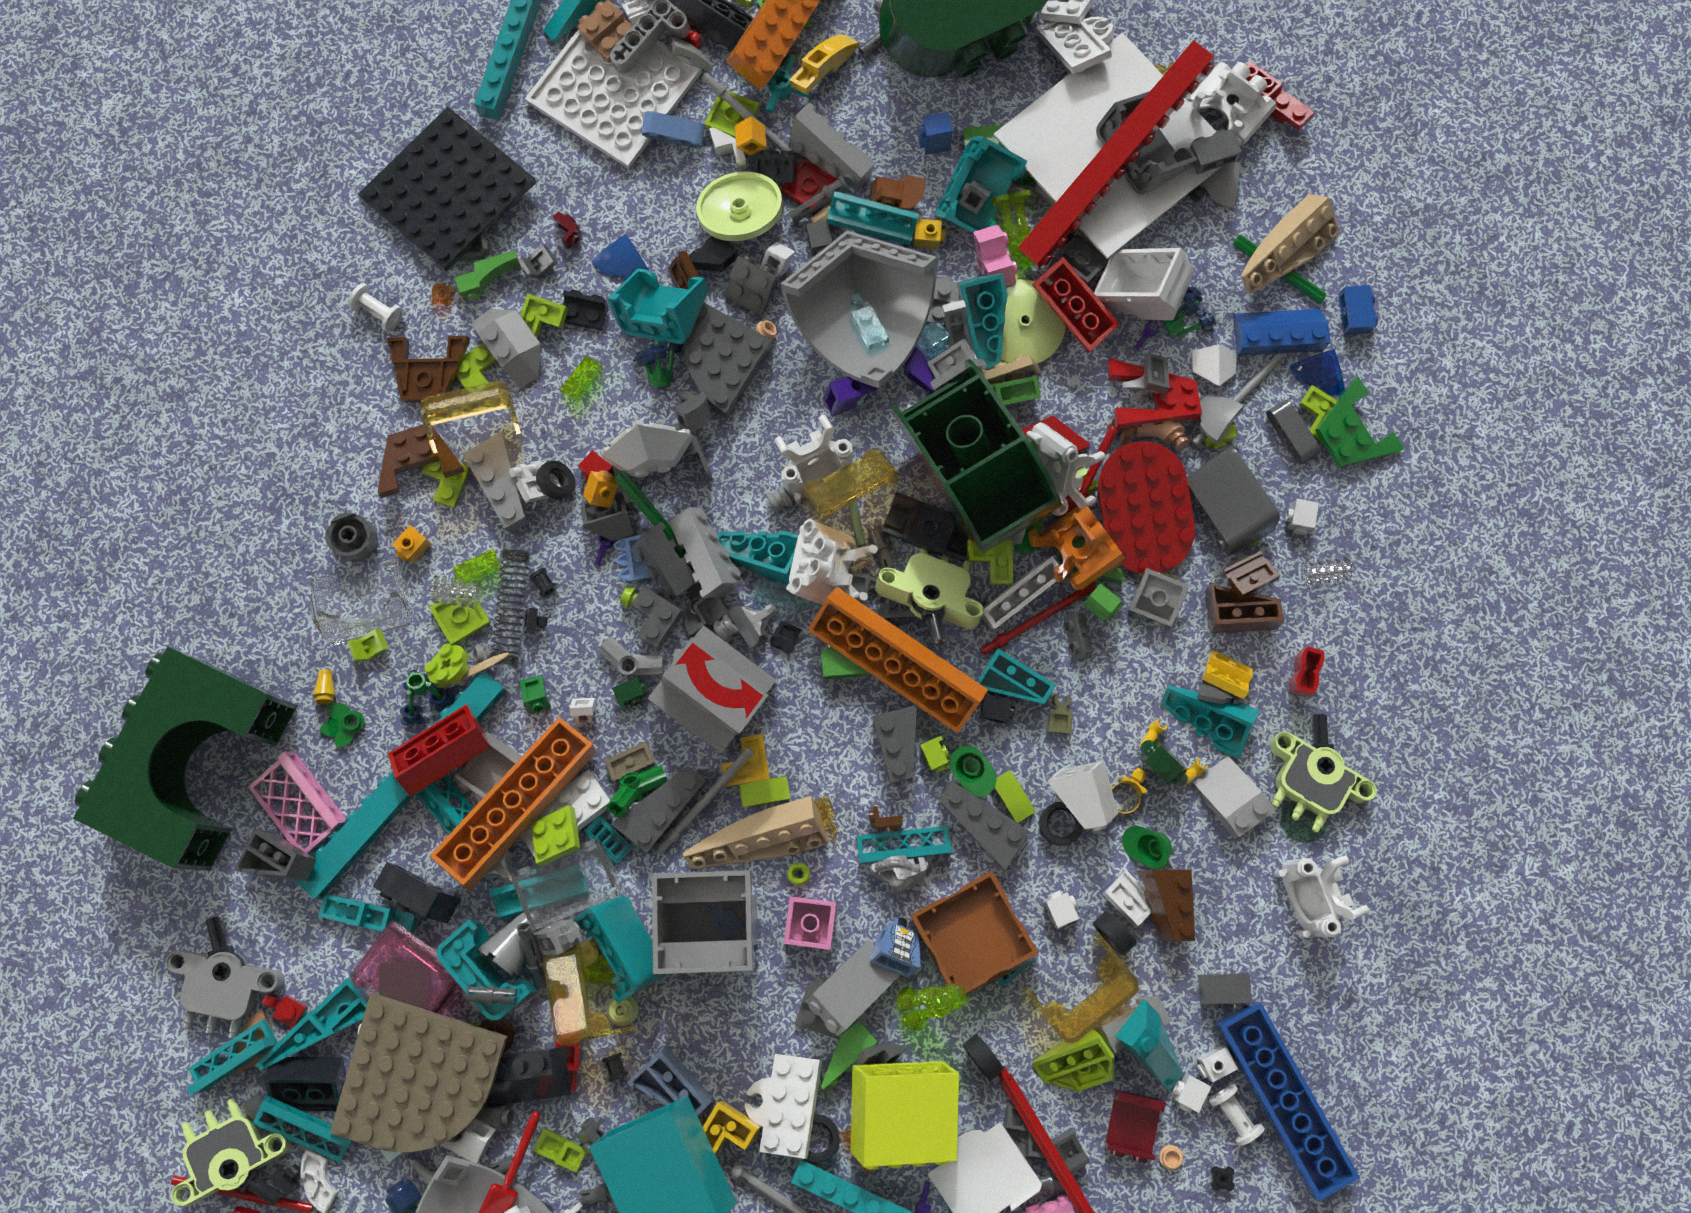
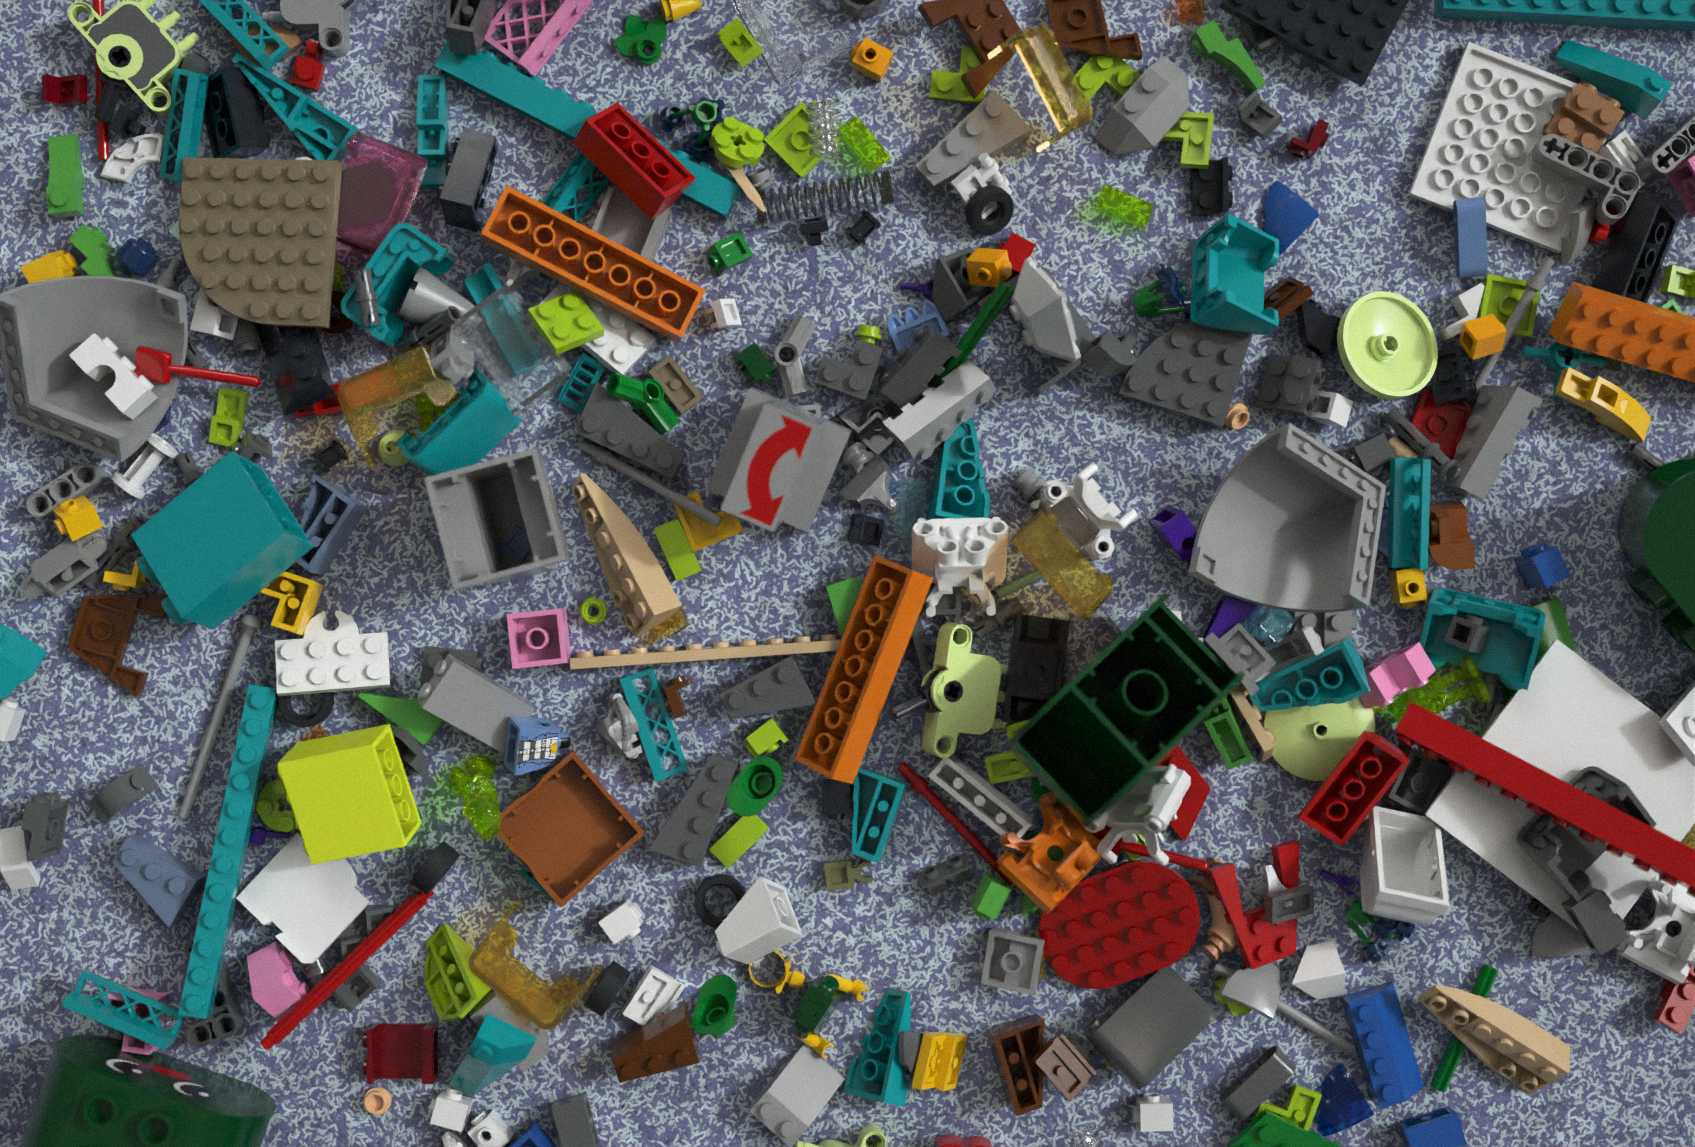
camera: 75 degrees right, 10 degrees up
(852, 796) = (695, 652): none -> tan plate
(867, 323) = (1272, 538): clear light blue hinge -> none
(901, 1193) = (269, 807): none -> lime plate

